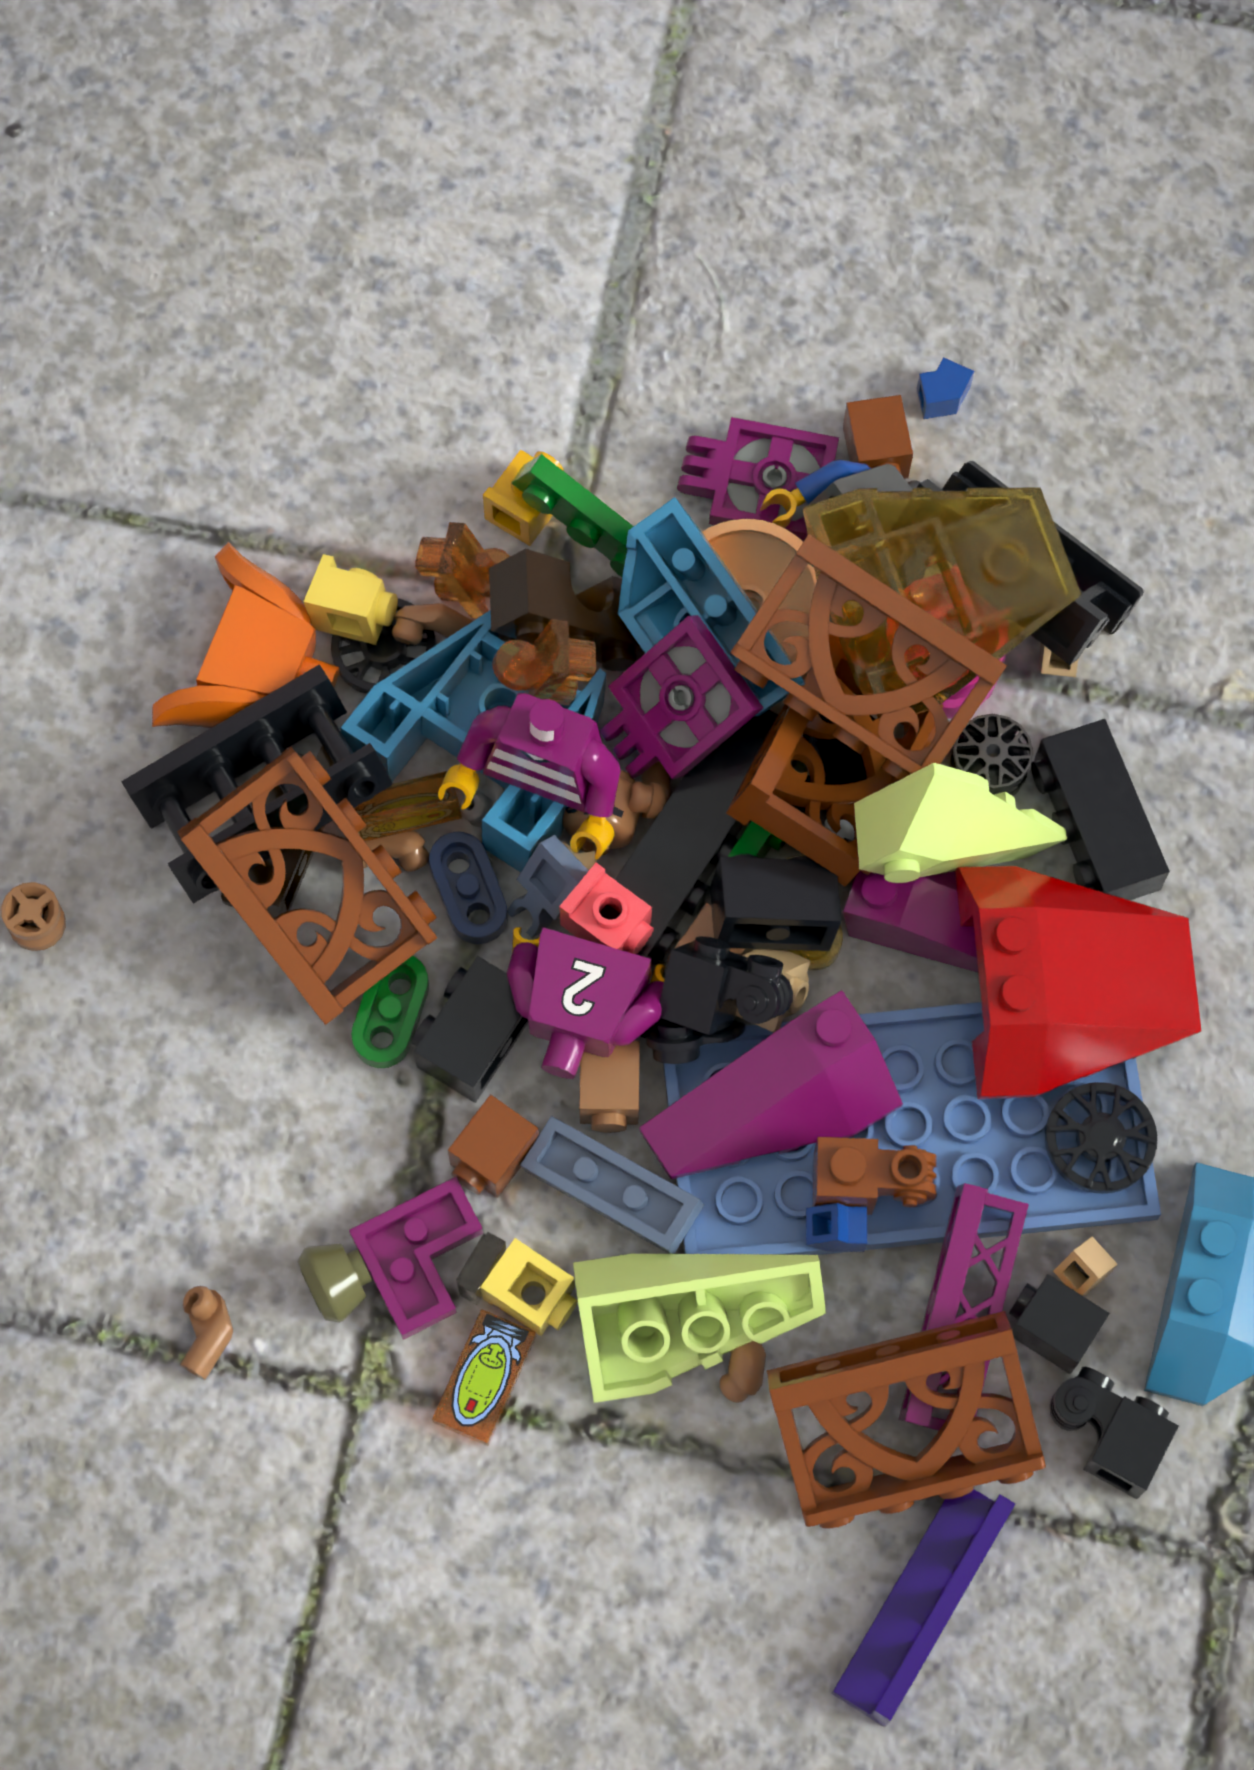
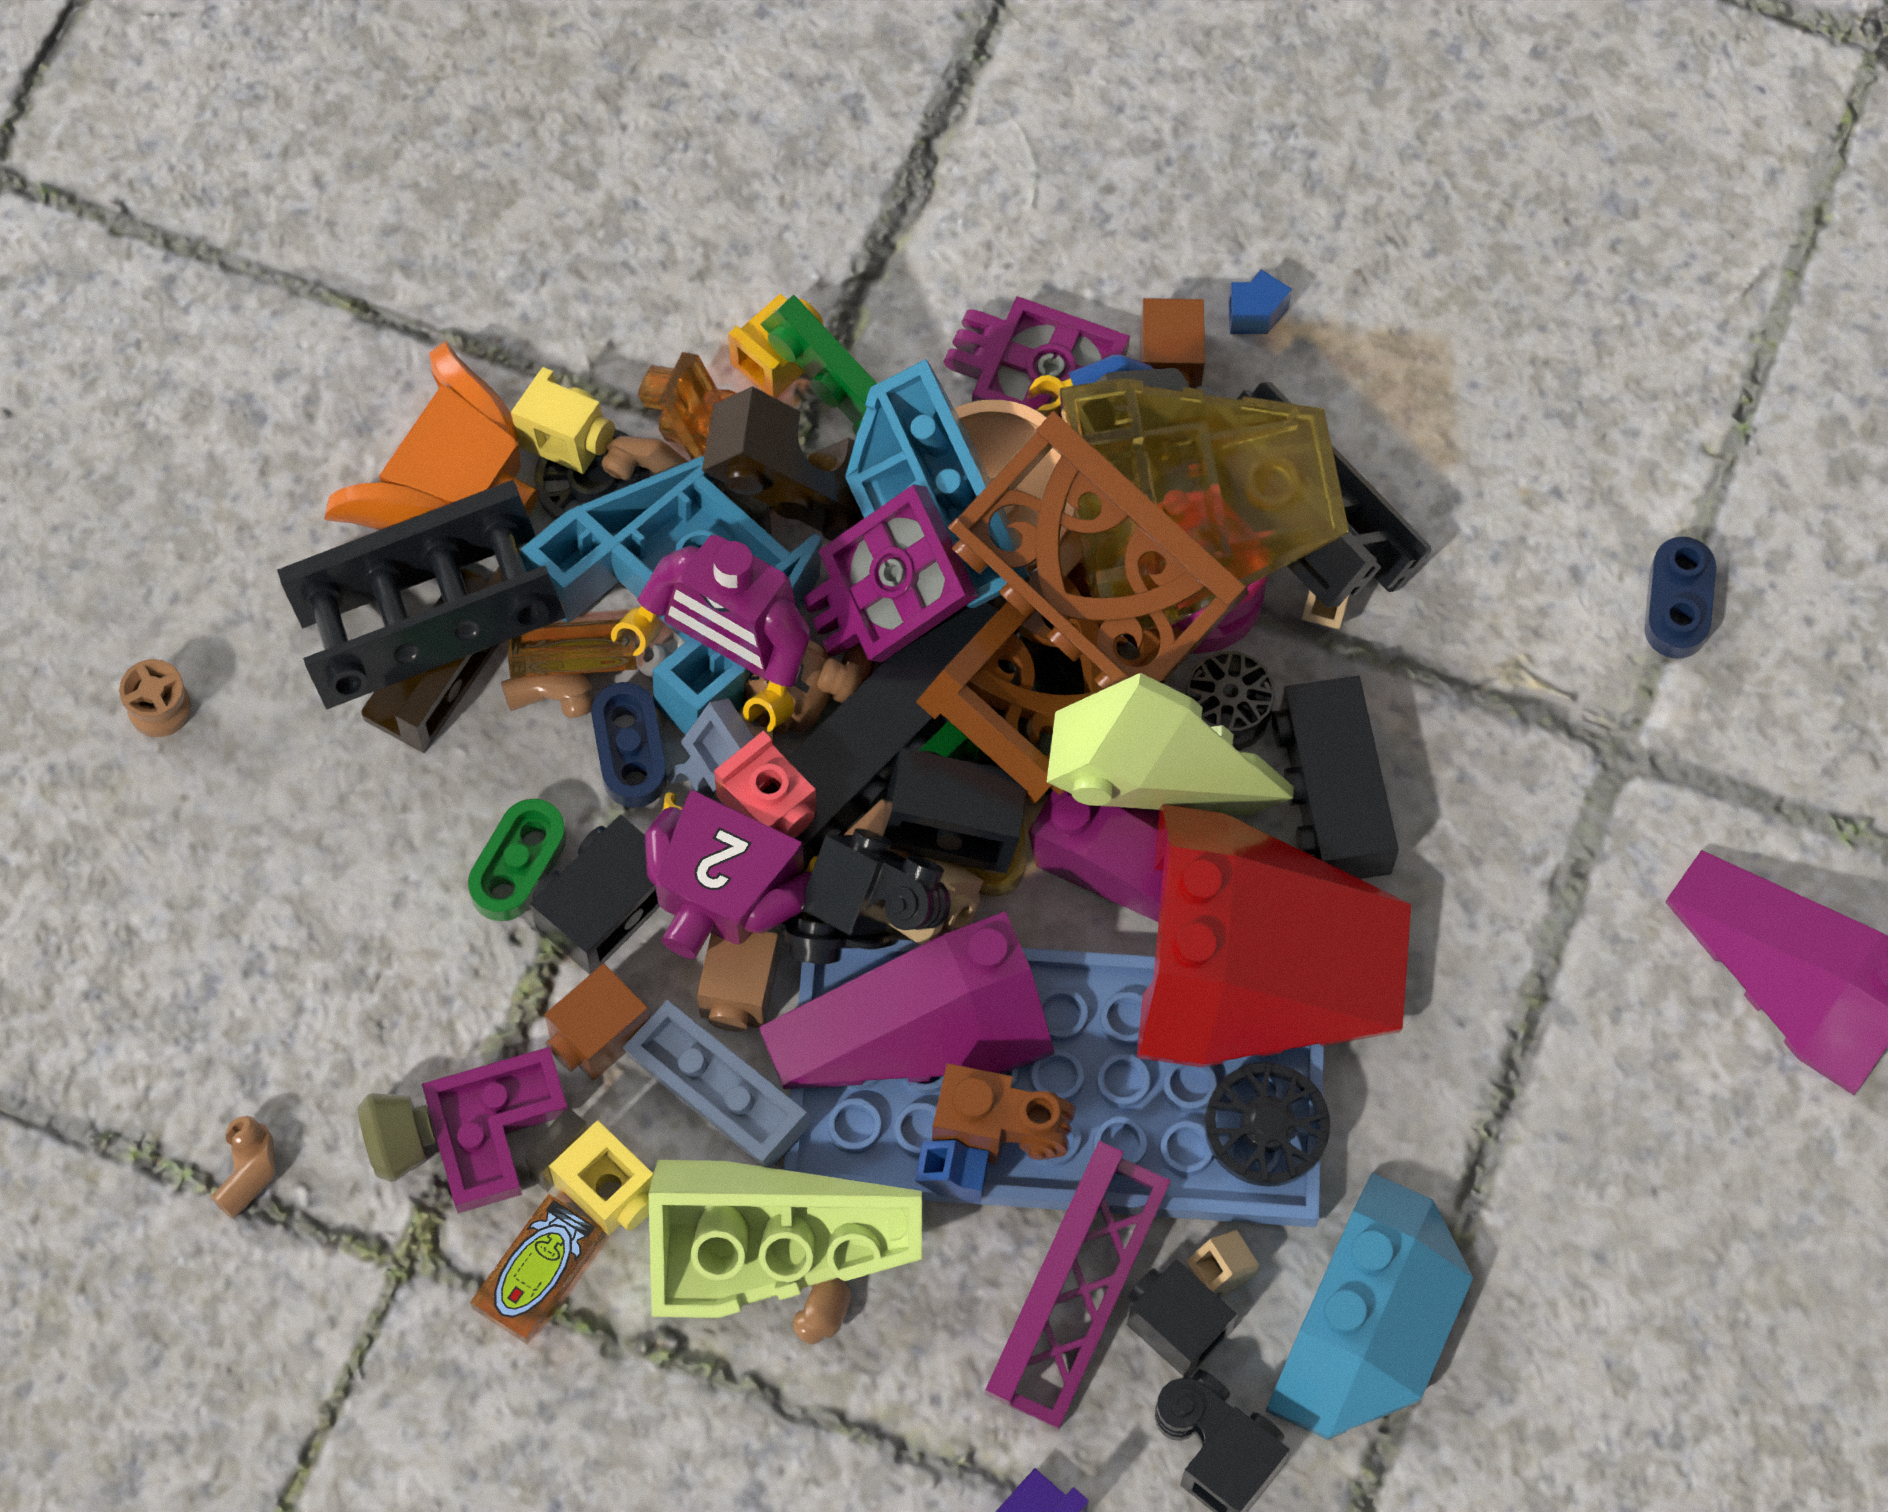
camera: 10 degrees right, 5 degrees down
(311, 964) = (433, 792): dark orange fence -> none
(548, 666) = (755, 516): clear orange hips -> none
(953, 1348) = (1052, 1319): dark orange fence -> none

